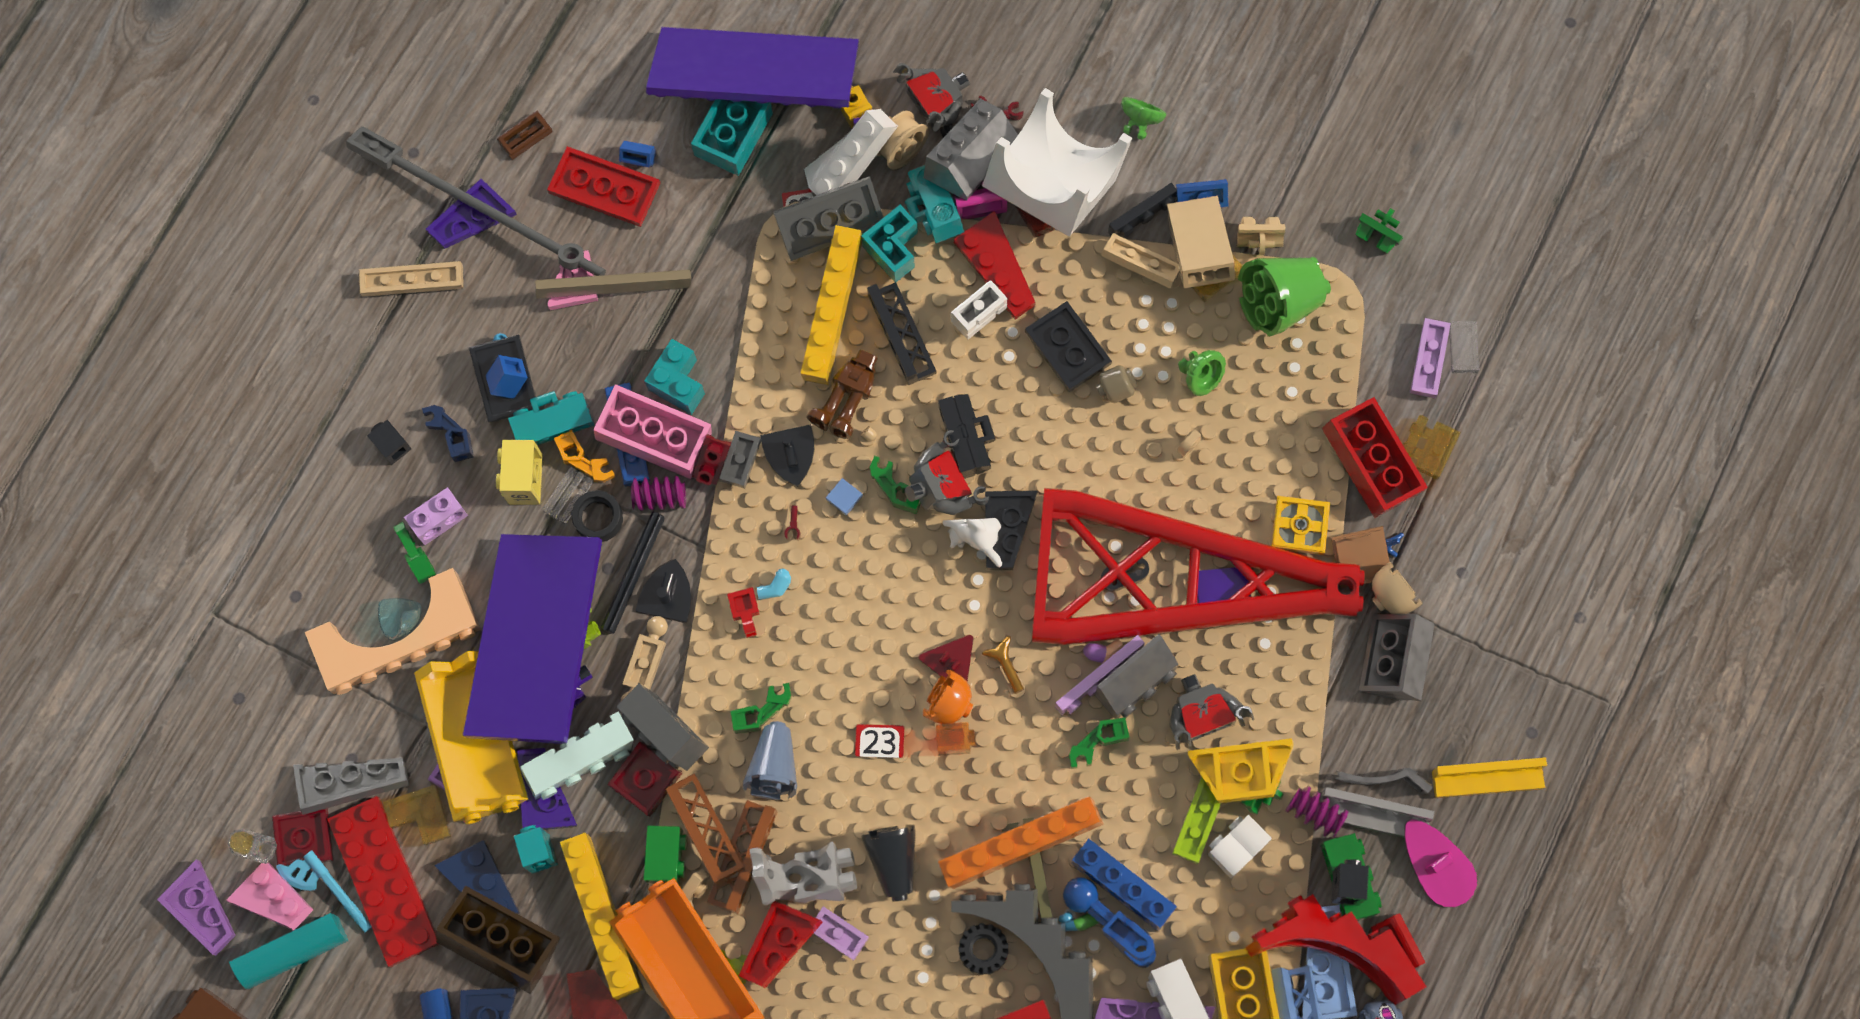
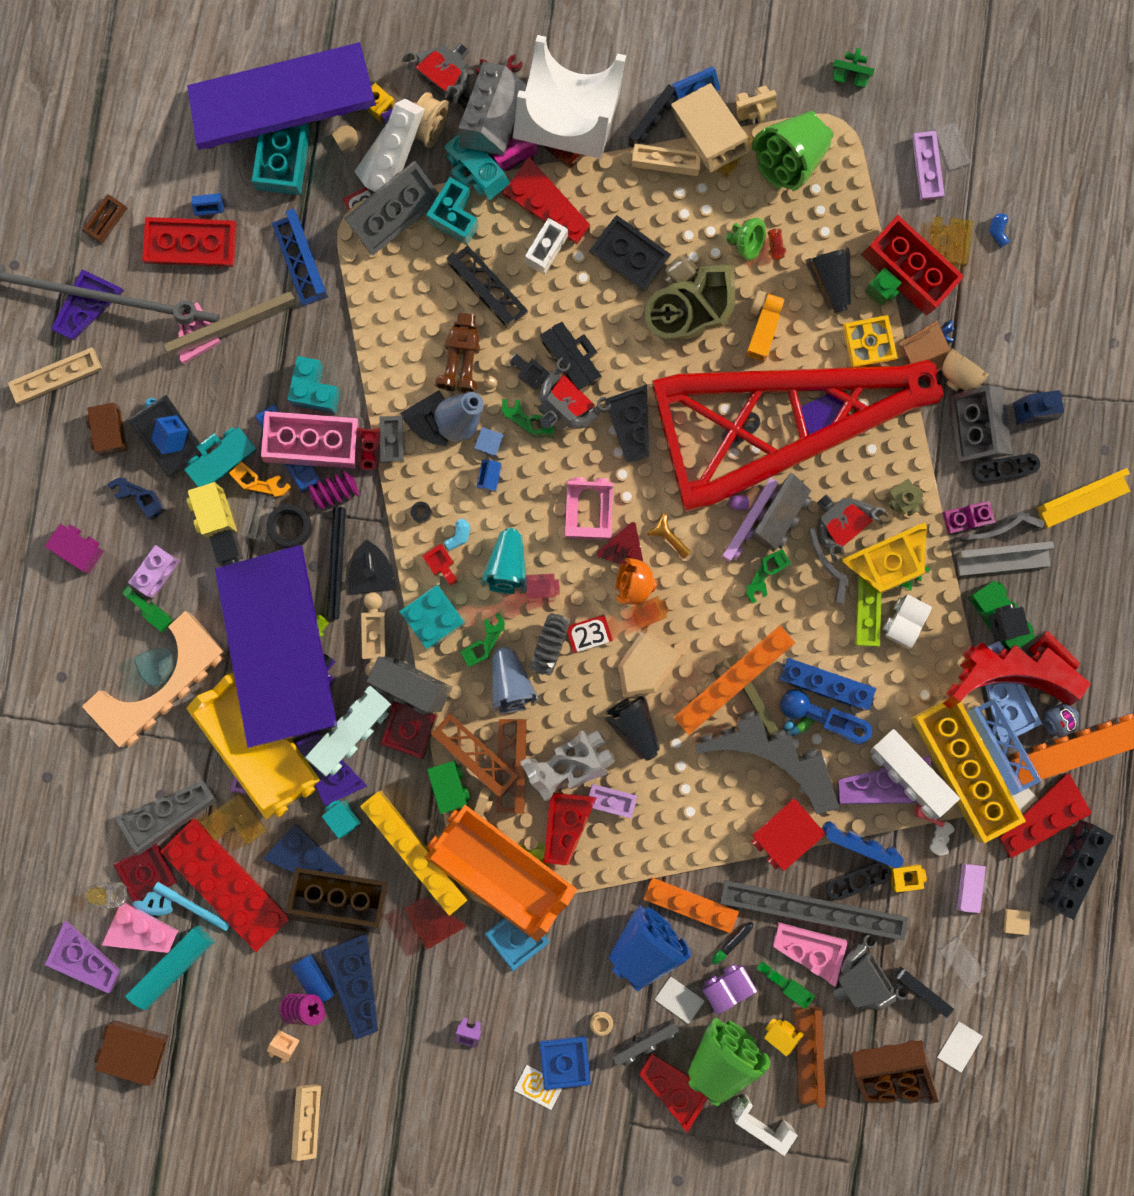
camera: 25 degrees left, 10 degrees up
(362, 464) = (74, 548): none -> magenta brick
(388, 441) = (89, 521): black brick -> none
(443, 351) = (106, 429): none -> reddish brown brick
(521, 516) = (226, 548): none -> black brick
(714, 664) = (432, 617): none -> teal brick
(721, 237) = (305, 252): none -> blue fence
(751, 549) = (428, 512): none -> black bush
(793, 523) = (455, 479): dark red hand -> none
(807, 131) = (345, 137): none -> tan tile
(814, 634) = (506, 564): none -> teal cone
(820, 458) = (459, 416): none -> sand blue cone
(830, 734) = (550, 644): none -> dark grey gear
(831, 305) = (422, 282): yellow brick -> none
(831, 532) = (489, 475): none -> blue piece
(843, 670) = (542, 588): none -> clear pink brick
(915, 437) = (531, 373): none -> black plate
(920, 577) = (605, 491): none -> bright pink panel
(930, 796) = (646, 664): none -> tan tile
(966, 949) = (717, 773): black tyre -> none
(978, 533) = (612, 437): white animal -> none
(1114, 424) = (693, 307): none -> olive piece
(1141, 115) = (623, 33): bright green hair -> none
(1180, 777) = (842, 579): none -> flat silver piece
(1188, 473) = (765, 328): none -> light orange leg
(1231, 389) = (777, 249): none -> clear red pin
(1280, 442) = (833, 278): none -> black cone
(1284, 699) = (903, 491): none -> olive brick
(1317, 811) = (961, 571): magenta piece -> none
(1334, 470) = (883, 287): none -> green brick
(1349, 755) = (968, 517): none -> magenta slope
(1429, 724) = (1023, 471): none -> black beam
(1439, 865) = (1067, 581): dark pink shield -> none
(1469, 659) = (1042, 407): none -> dark blue torso
(1486, 449) = (997, 229): none -> blue arm

